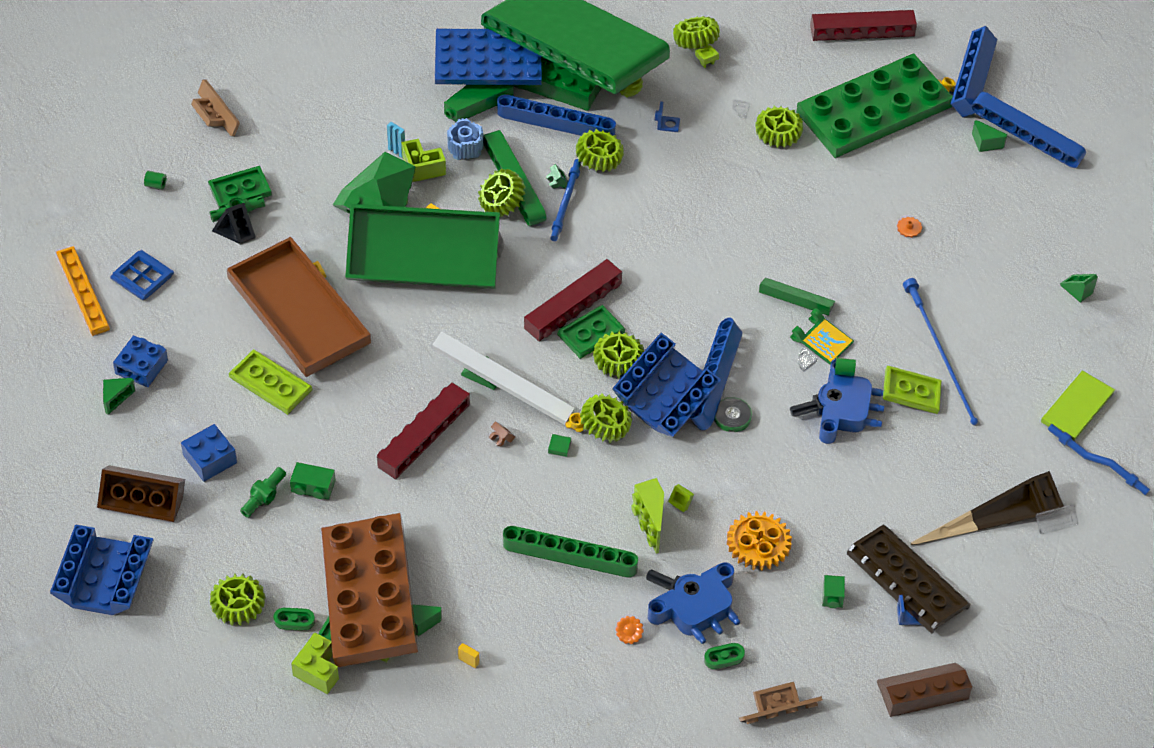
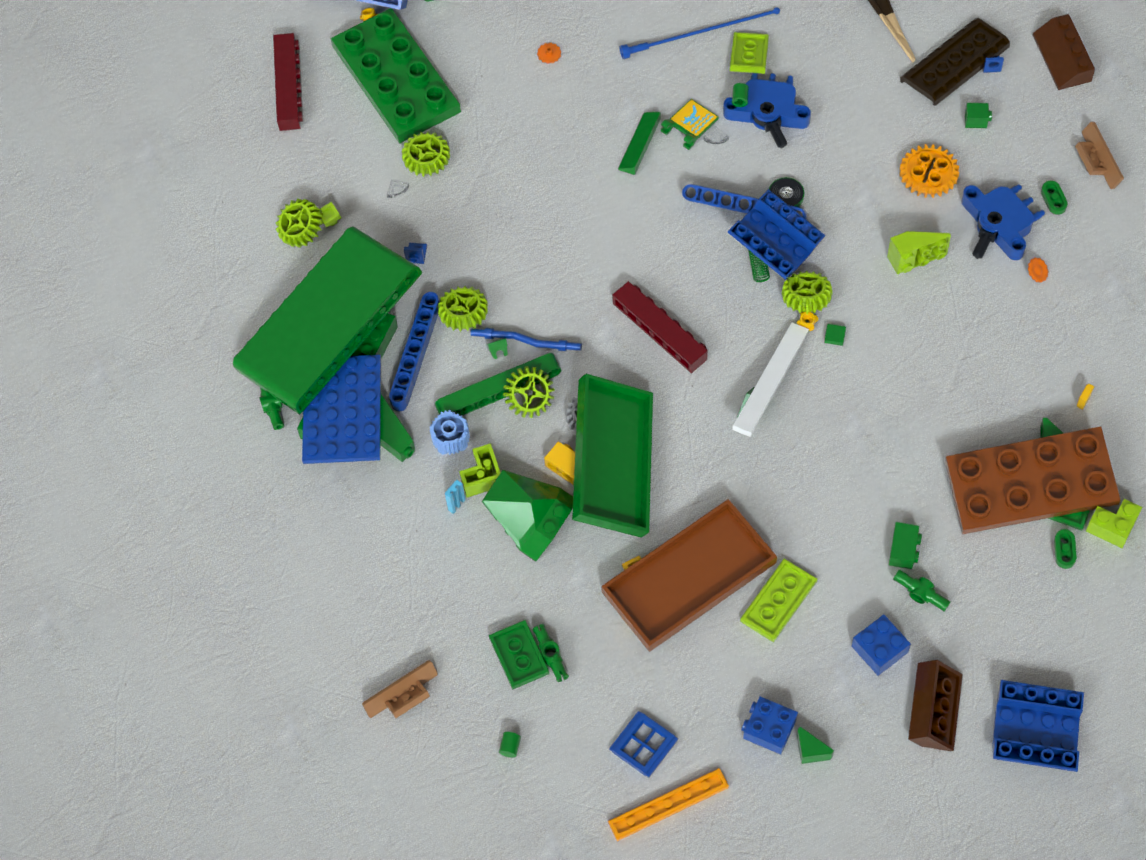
camera: 85 degrees left, 10 degrees up
(235, 224) = (575, 652): black slope -> none
(239, 605) = (1043, 597): lime gear -> none
(423, 430) = (832, 450): dark red brick -> none
(502, 432) = (828, 381): tile -> none
(578, 556) = (960, 326): green beam -> none
(585, 331) = (694, 312): green tile -> none
(607, 350) = (730, 281): lime gear -> none
(681, 497) = (888, 230): lime tile -> none

